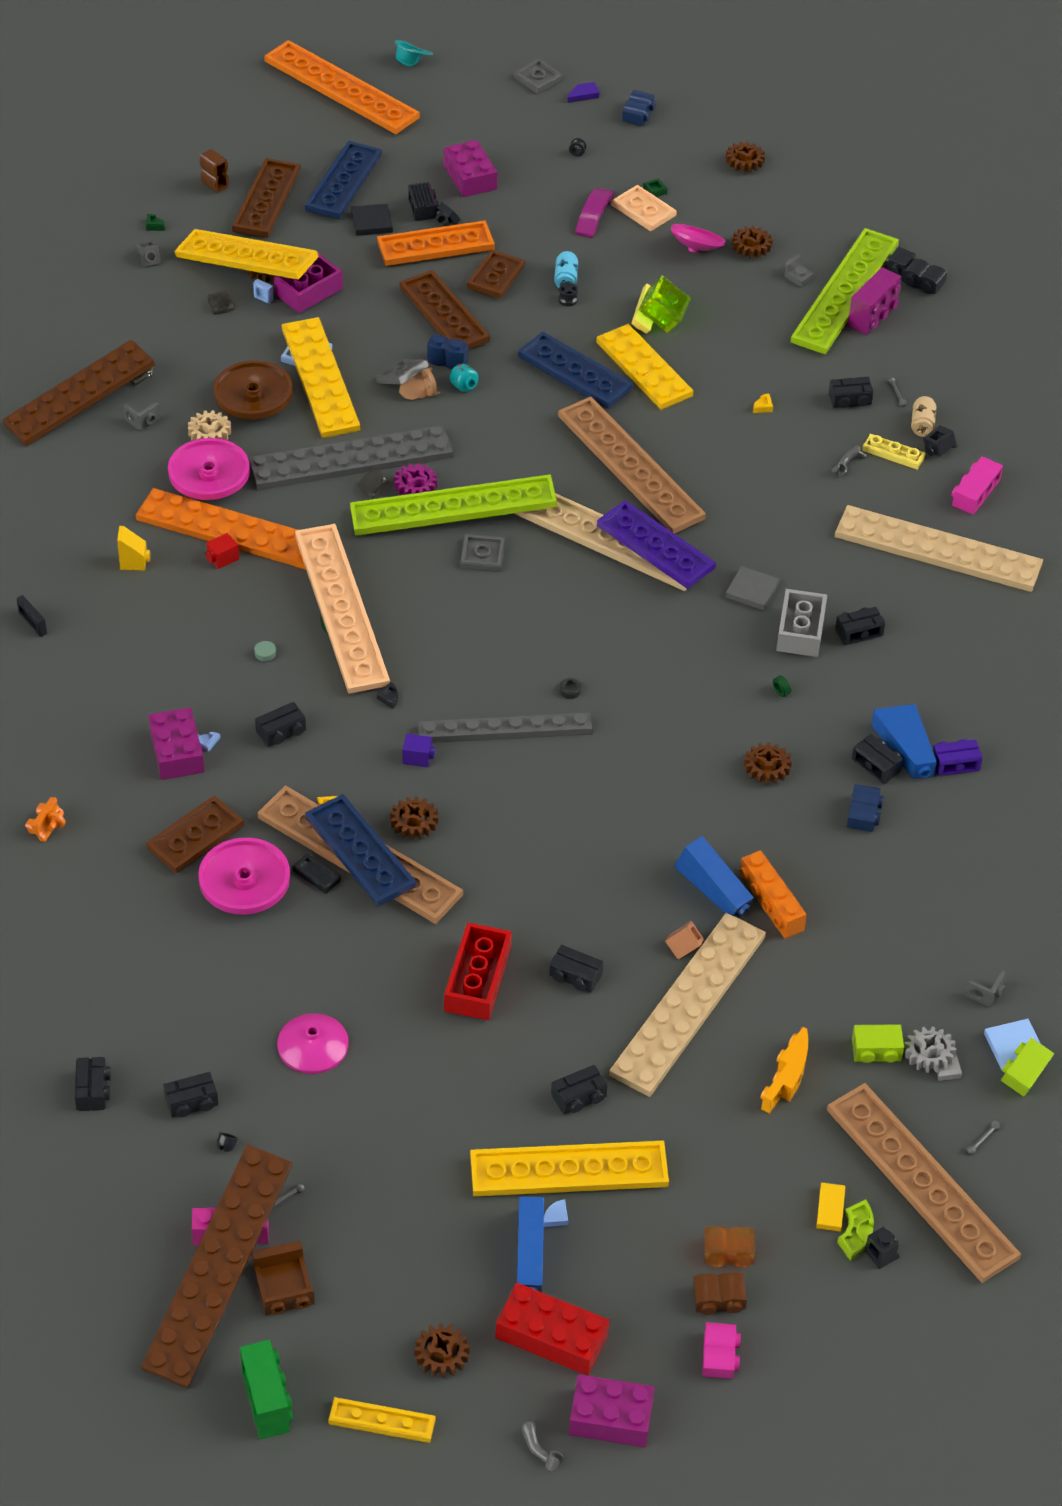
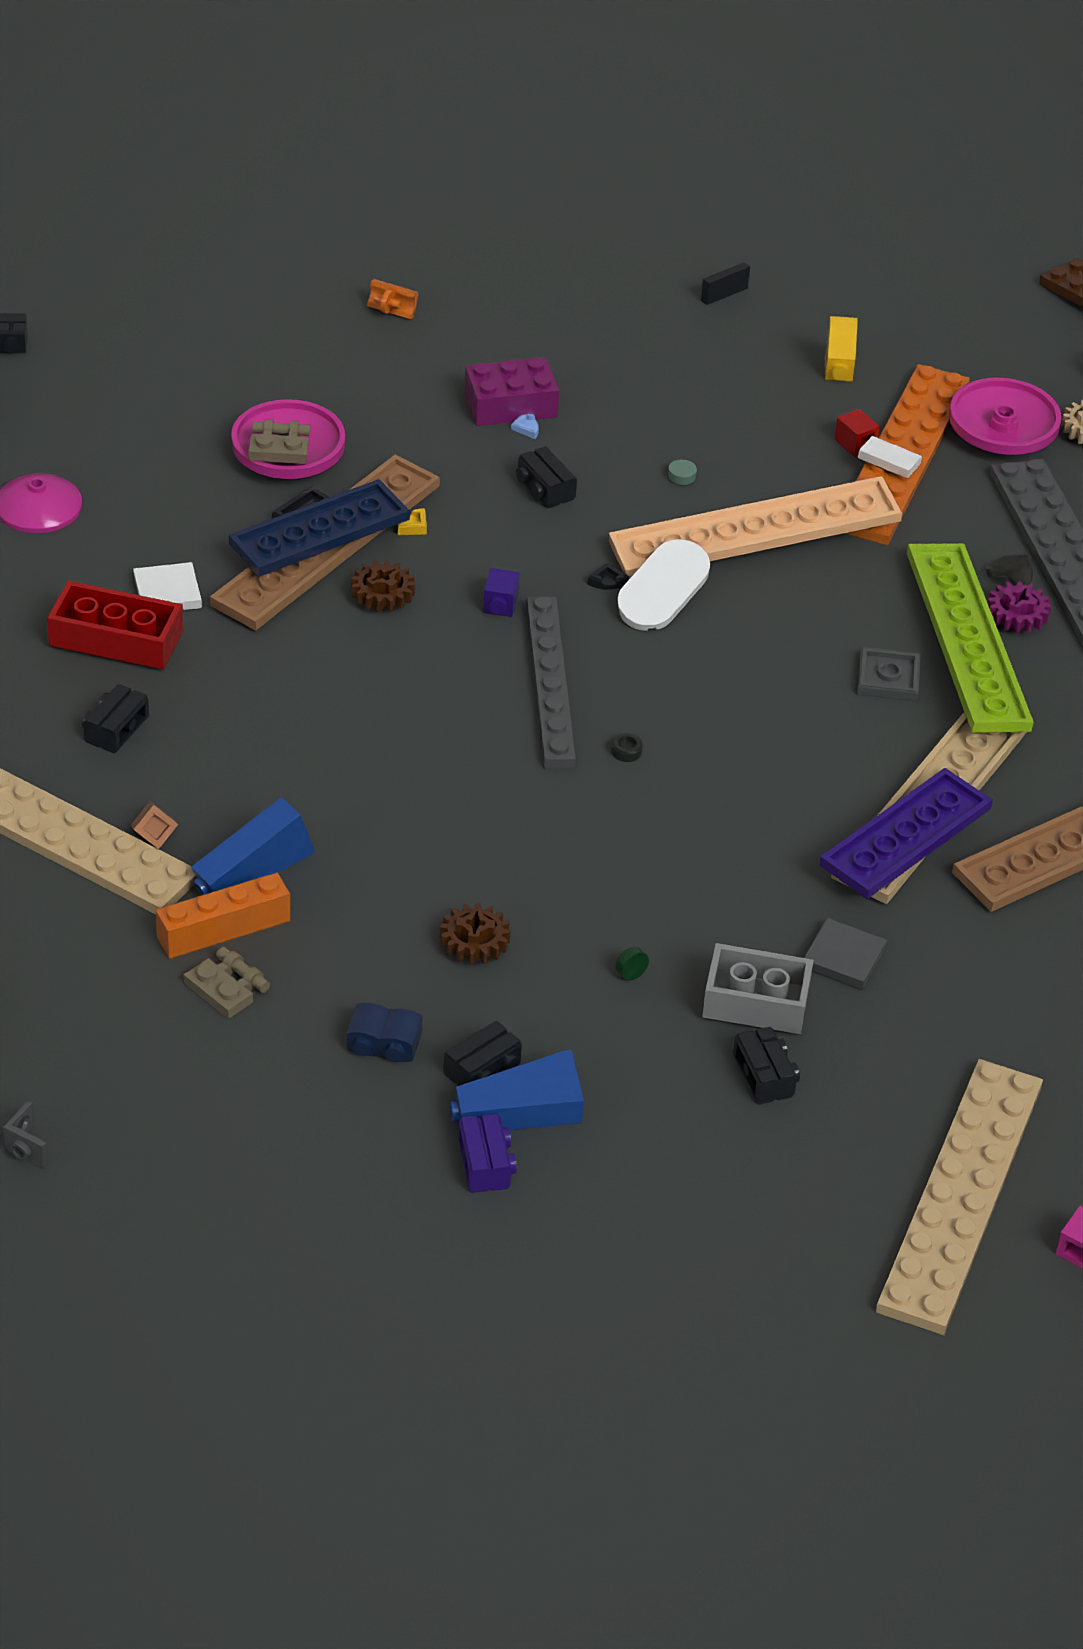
camera: 90 degrees right, 5 degrees down
(195, 834) = (367, 410): reddish brown plate -> none
(259, 531) = (889, 457): none -> white tile
(268, 874) = (278, 447): none -> dark tan plate
(406, 659) = (663, 584): none -> white tile
(417, 951) = (169, 583): none -> white tile
(831, 899) = (220, 989): none -> dark tan plate

